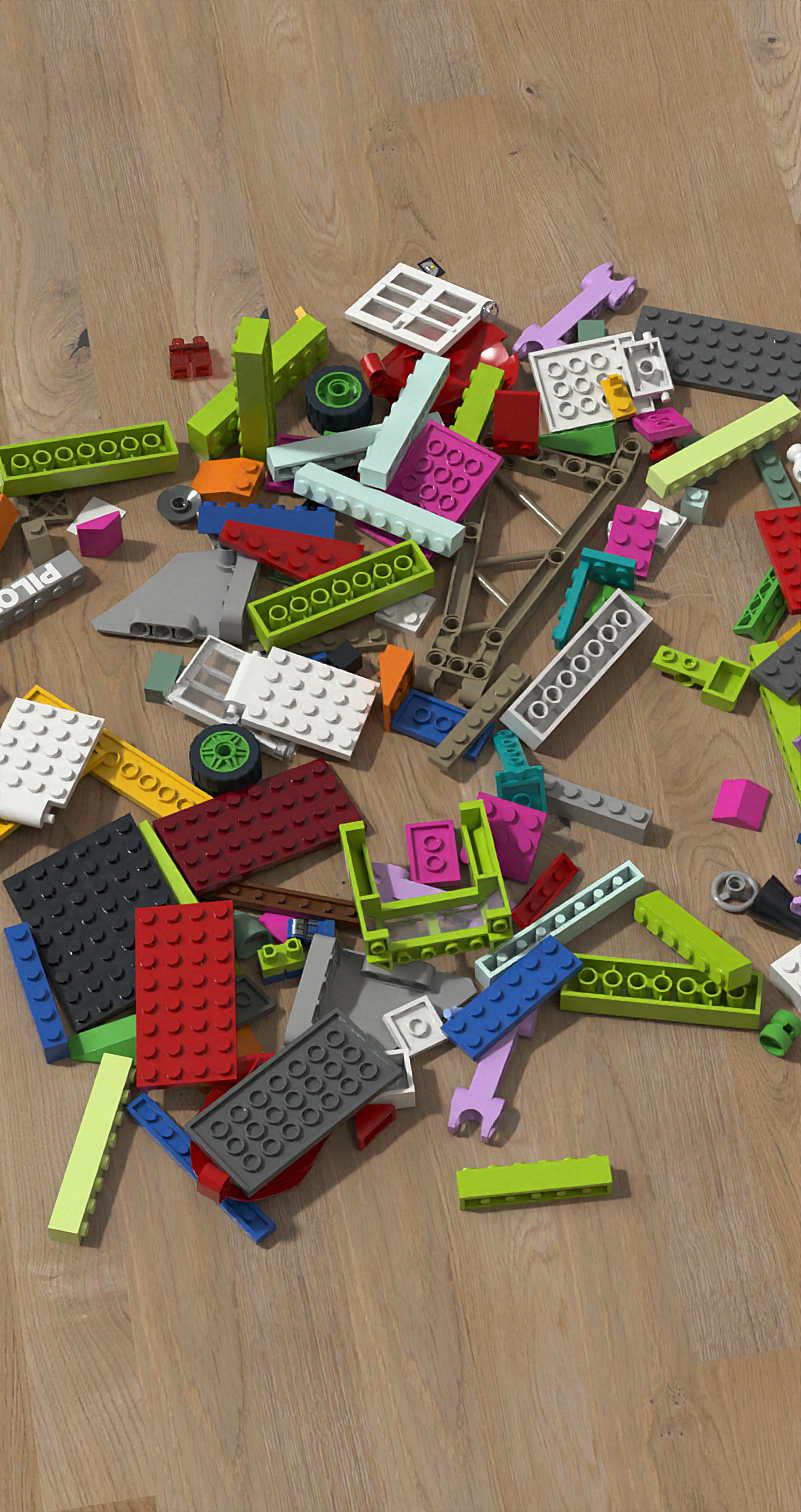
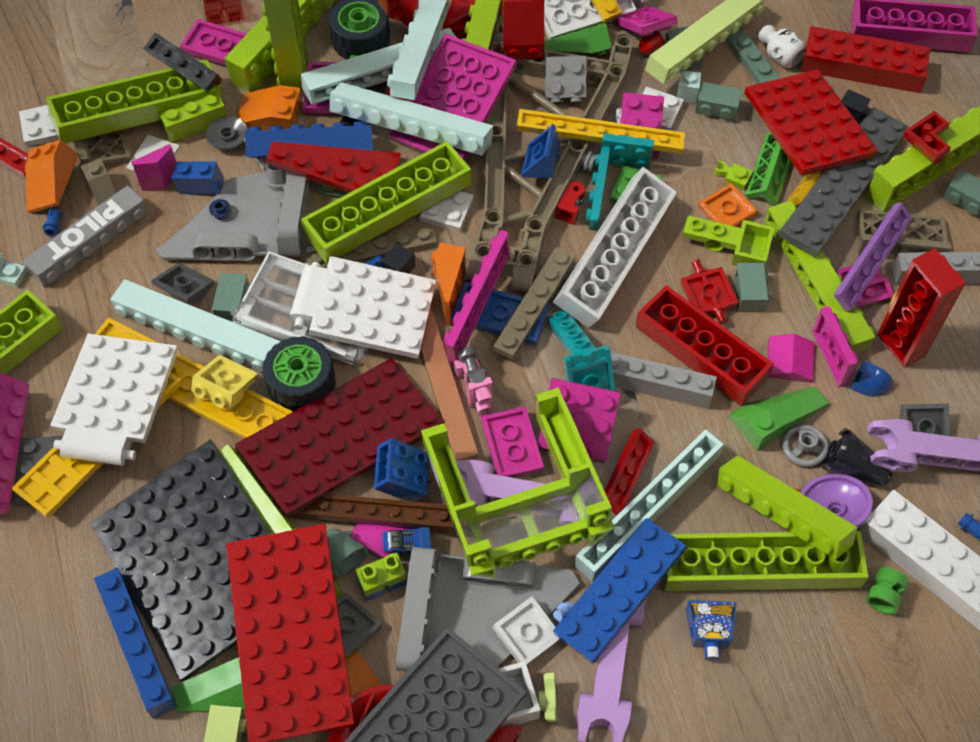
camera: 10 degrees left, 5 degrees up
(117, 658) = (184, 283): none -> dark grey slope
(121, 701) = (192, 324): none -> light aqua brick
(140, 423) = (182, 63): none -> black hinge
(143, 549) = (197, 177): none -> blue brick
(144, 482) = (192, 116): none -> lime brick
(147, 760) = (223, 382): none -> light yellow plate
(162, 590) = (222, 213): none -> dark blue plate
(174, 399) = (211, 41): none -> dark pink plate
(316, 865) = (401, 470): none -> blue brick
(374, 796) = (446, 393): none -> nougat tile
(406, 790) = (478, 386): none -> bright pink hips
(419, 704) = (476, 300): none -> dark pink plate
(427, 1088) = (548, 698): none -> yellowish green piece
(516, 563) = (542, 155): none -> blue slope
(535, 621) = (567, 207): none -> red leg
(558, 481) = (566, 78): none -> light grey plate
(565, 576) = (588, 161): none -> light grey plate
(573, 541) = (593, 129): none -> yellow plate
(599, 1043) = (711, 625): none -> torso
(648, 779) = (703, 344): none -> red brick
(668, 727) = (709, 291): none -> red plate
(705, 860) = (774, 416): none -> bright green wedge
(710, 641) = (728, 207): none -> orange tile
(713, 727) = (751, 287): none -> sand green brick
(724, 524) = (718, 101): none -> sand green brick
(726, 608) = (737, 174): none -> lime plate
(755, 940) = (842, 496): none -> medium lavender dish
(784, 794) = (834, 346): none -> dark pink plate

